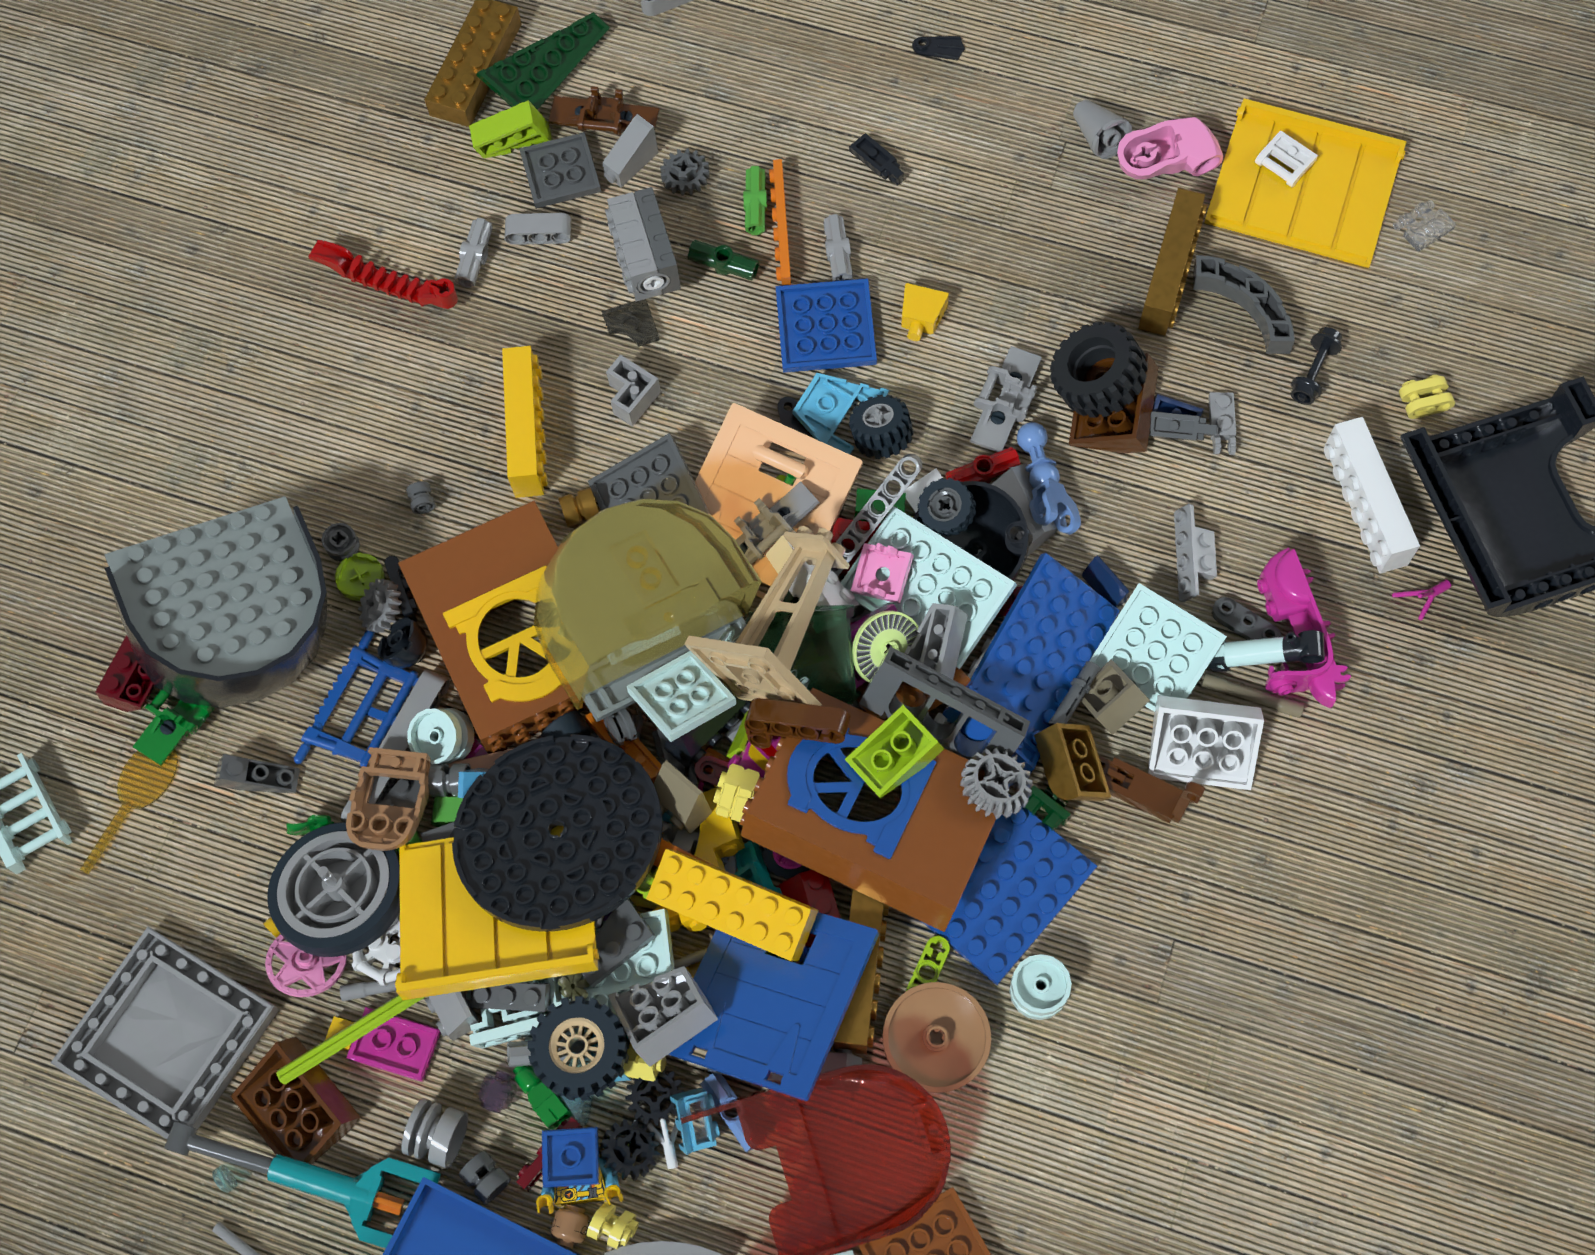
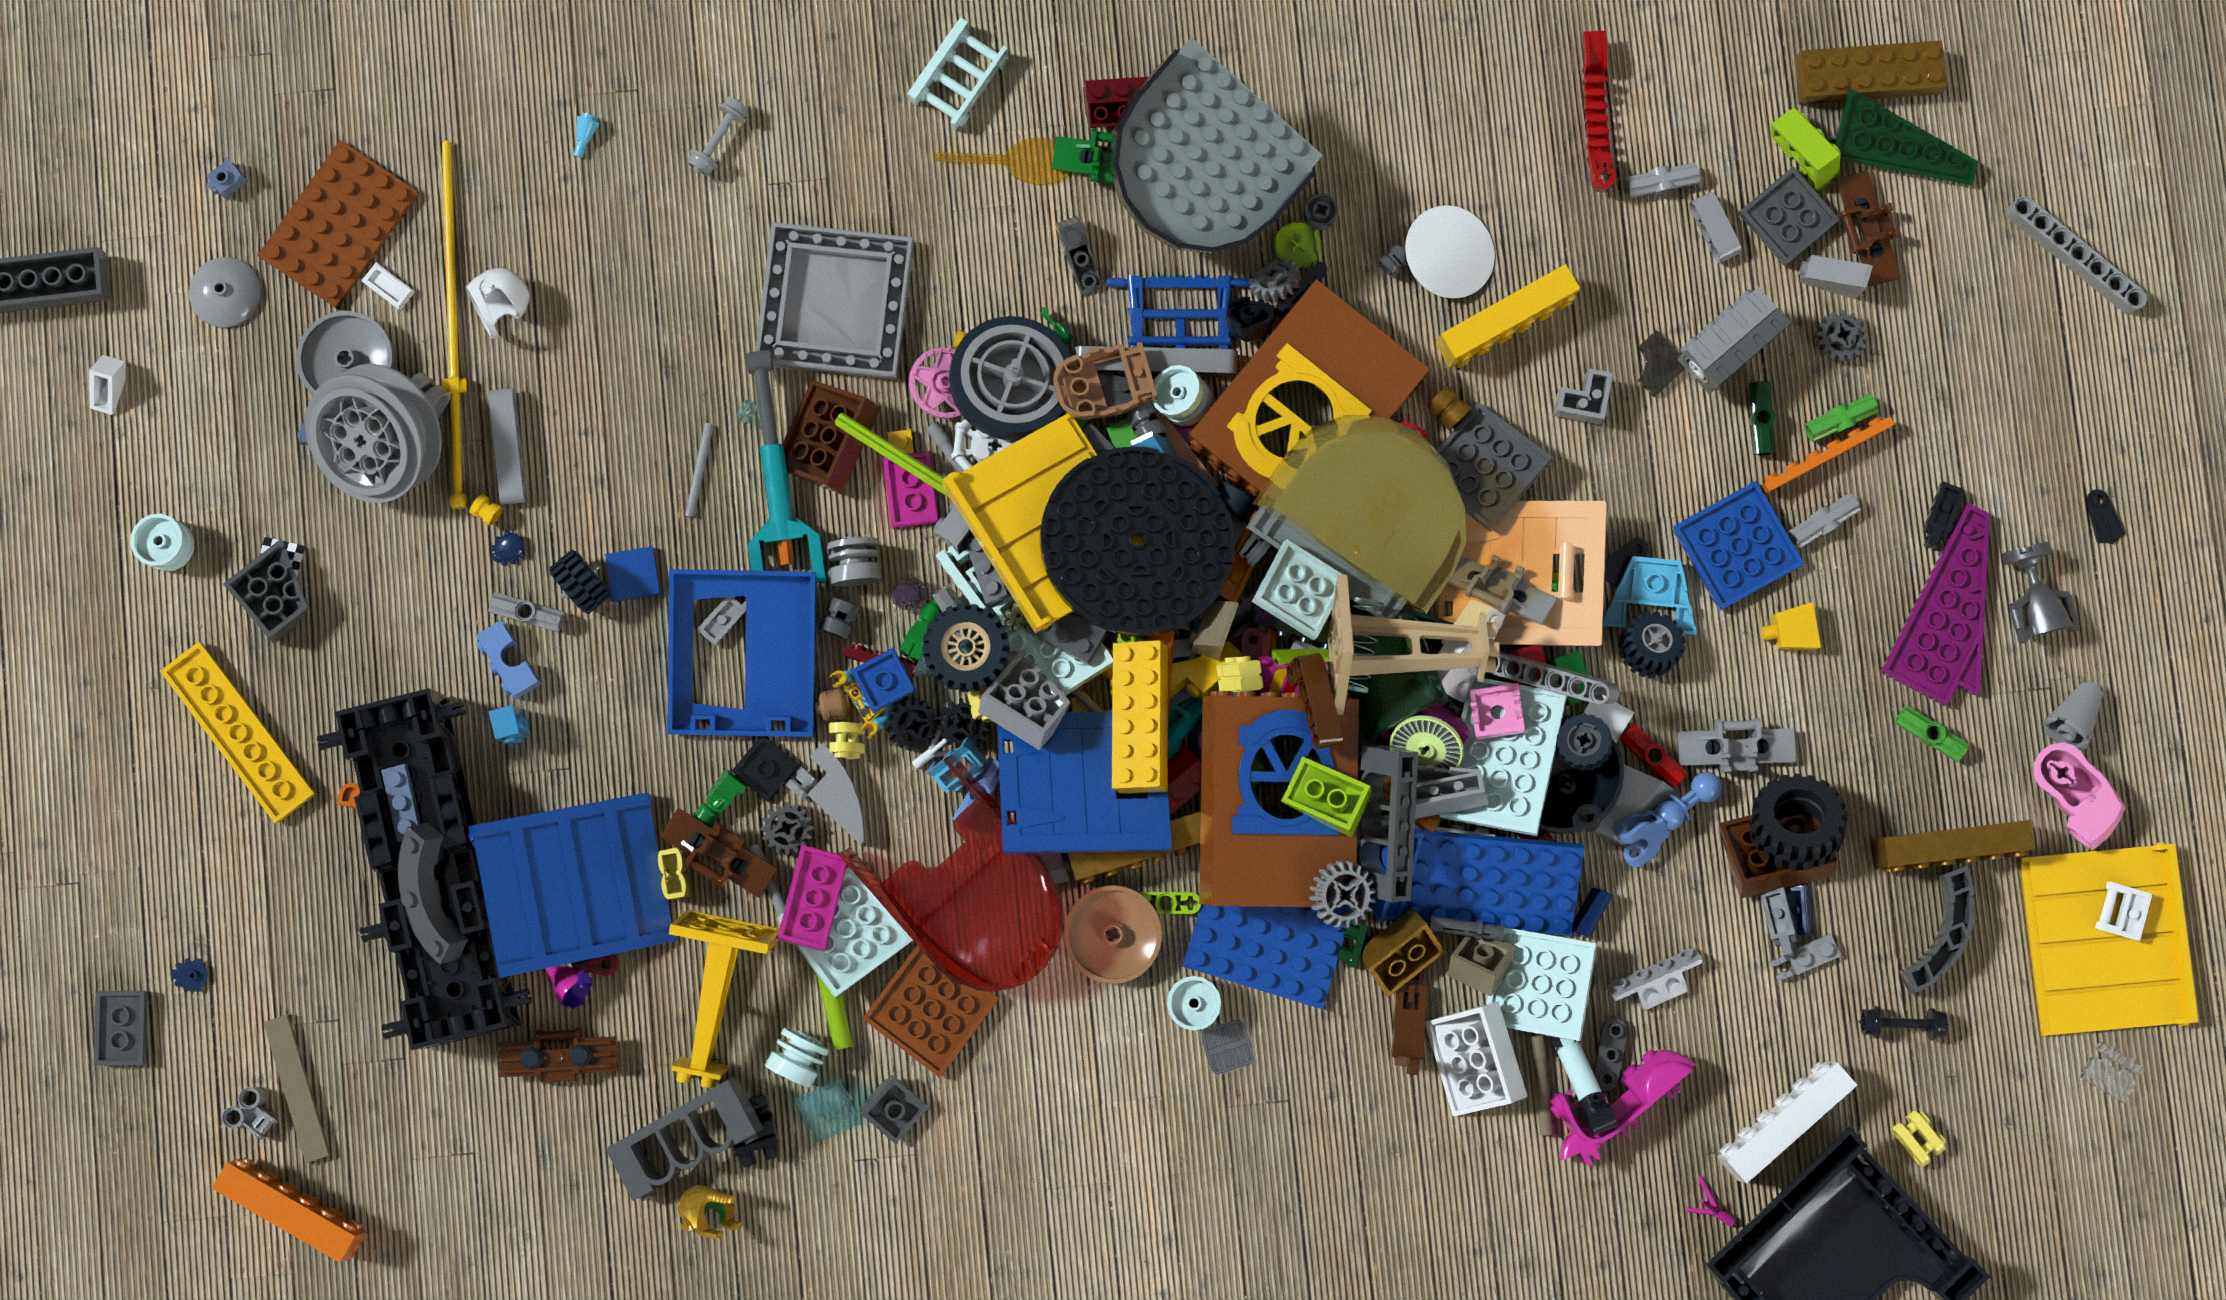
camera: 60 degrees right, 15 degrees up
(438, 447) = (1450, 251): none -> white sticker
(980, 199) = (1945, 627): none -> magenta wing
(994, 114) = (2040, 608): none -> flat silver piece
(1055, 248) = (1918, 726): none -> bright green piece
(1097, 975) = (1227, 1047): none -> clear tile

